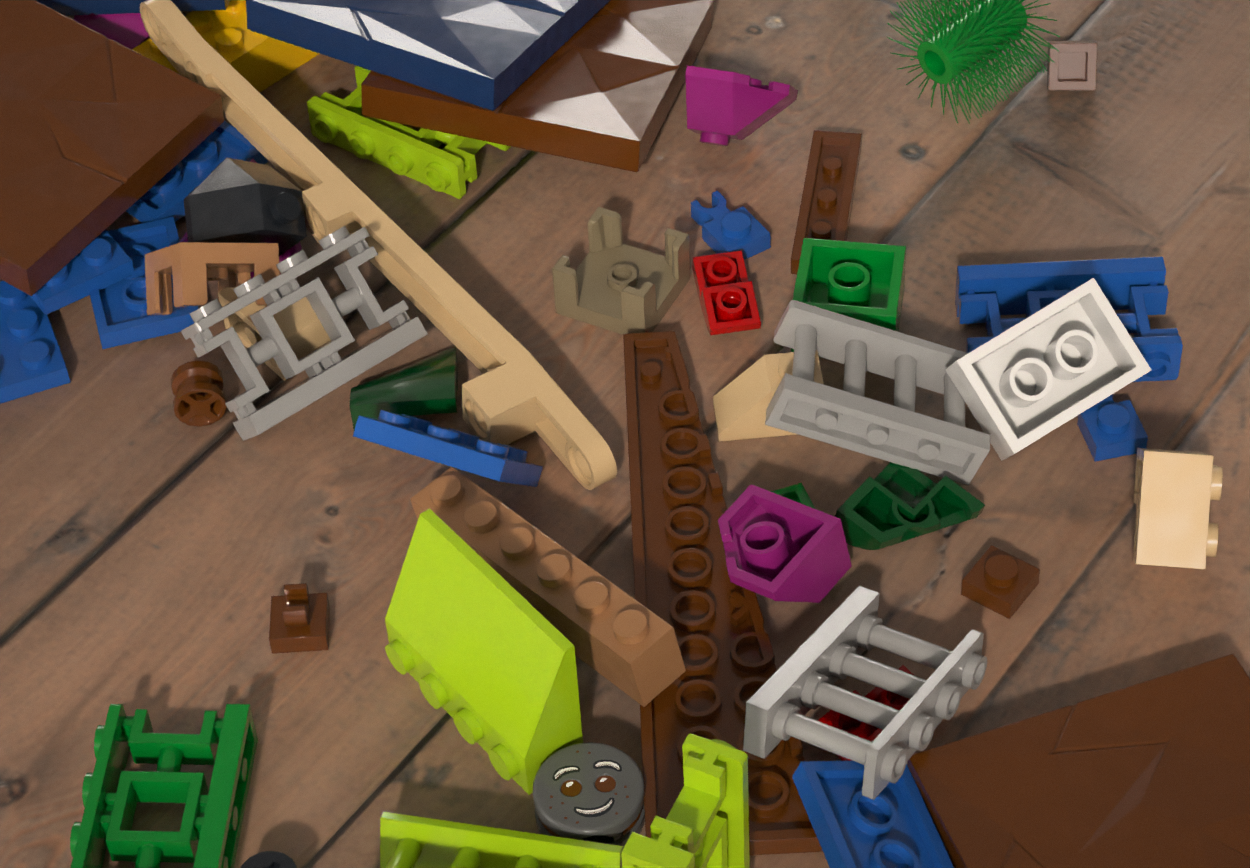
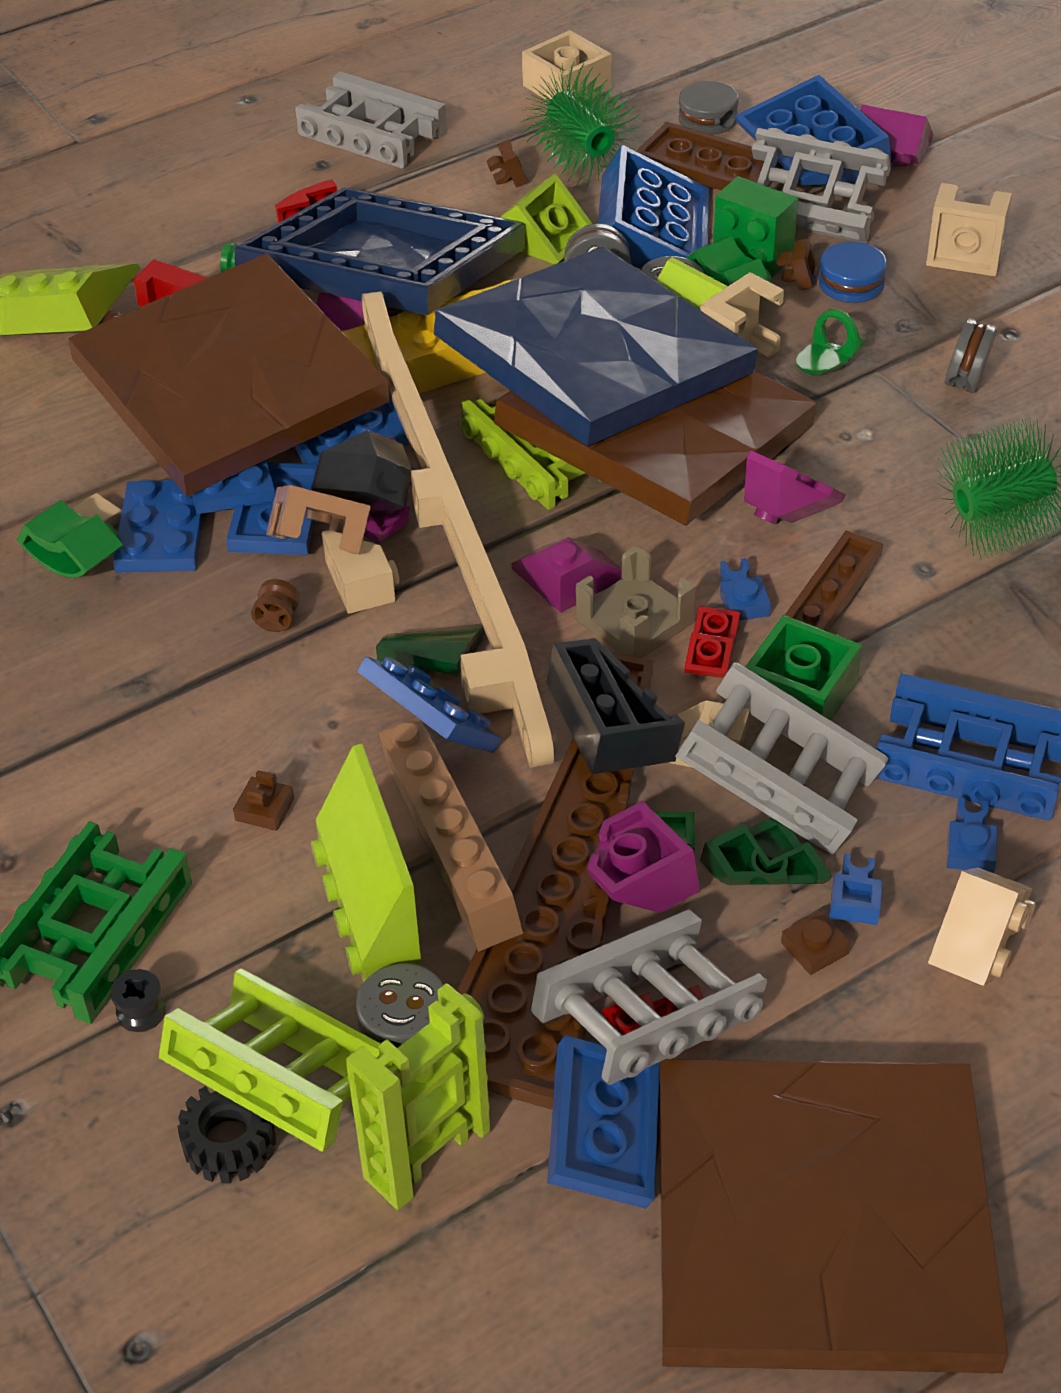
camera: 20 degrees right, 0 degrees up
(324, 365) = (372, 609): light grey fence -> none
(517, 261) = (561, 565): none -> magenta slope
(662, 399) = (607, 712): none -> black wedge
(1020, 518) = (855, 893): none -> blue plate
(1047, 369) = (927, 779): white brick -> none

